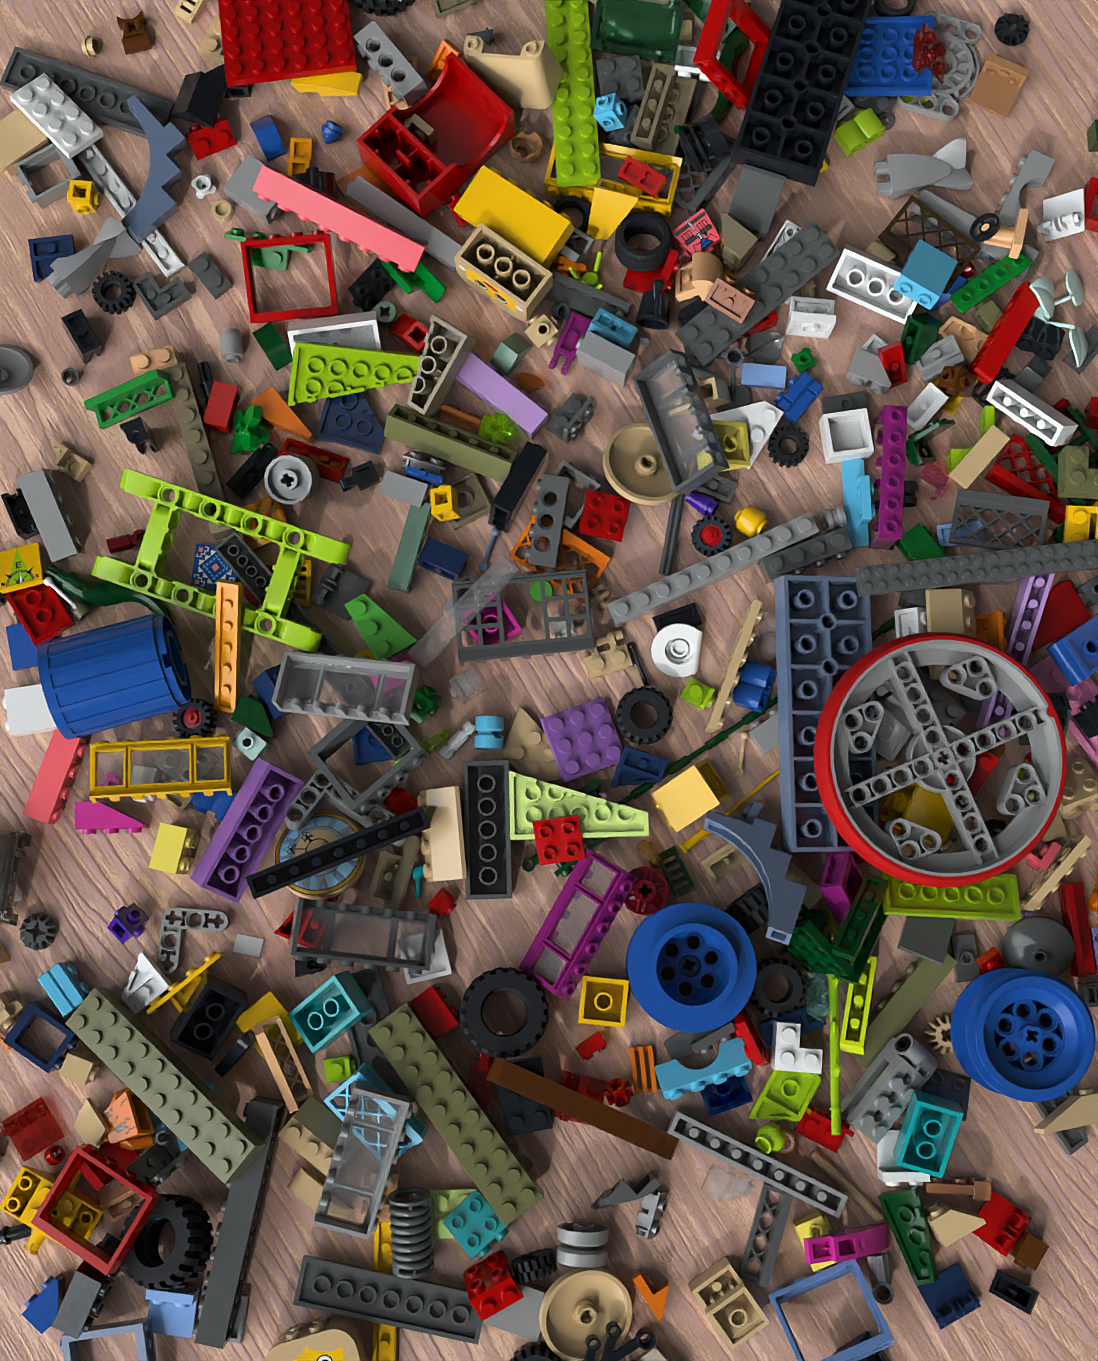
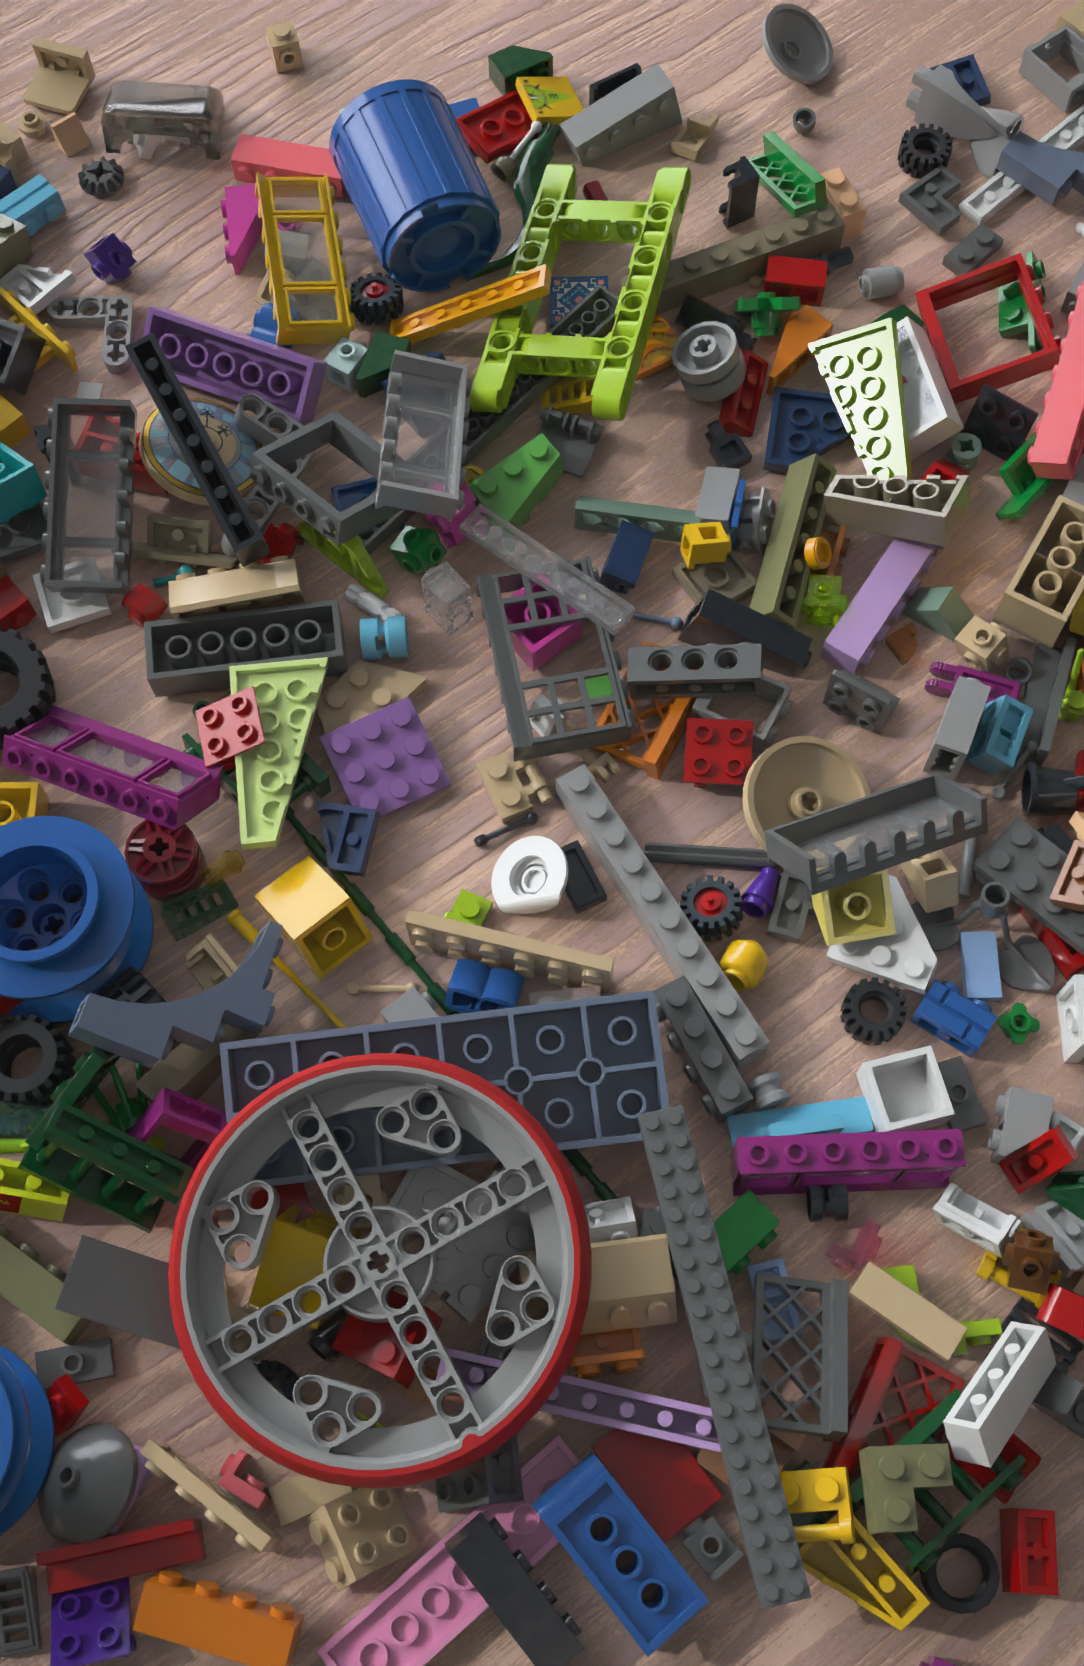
camera: 85 degrees right, 15 degrees down
(81, 335) = (859, 121): black hinge -> none
(83, 196) = (1043, 100): yellow brick -> none
(173, 849) = (204, 288): light yellow brick -> none
(222, 211) = (1064, 255): tan tile -> none
(464, 426) = (817, 553): none -> light orange tile
(655, 699) = (418, 813): black tyre -> none
(750, 812) = (290, 1004): sand blue bracket -> none
(917, 447) = (908, 1212): dark green bracket -> none
(985, 900) = (164, 1392): lime plate -> none

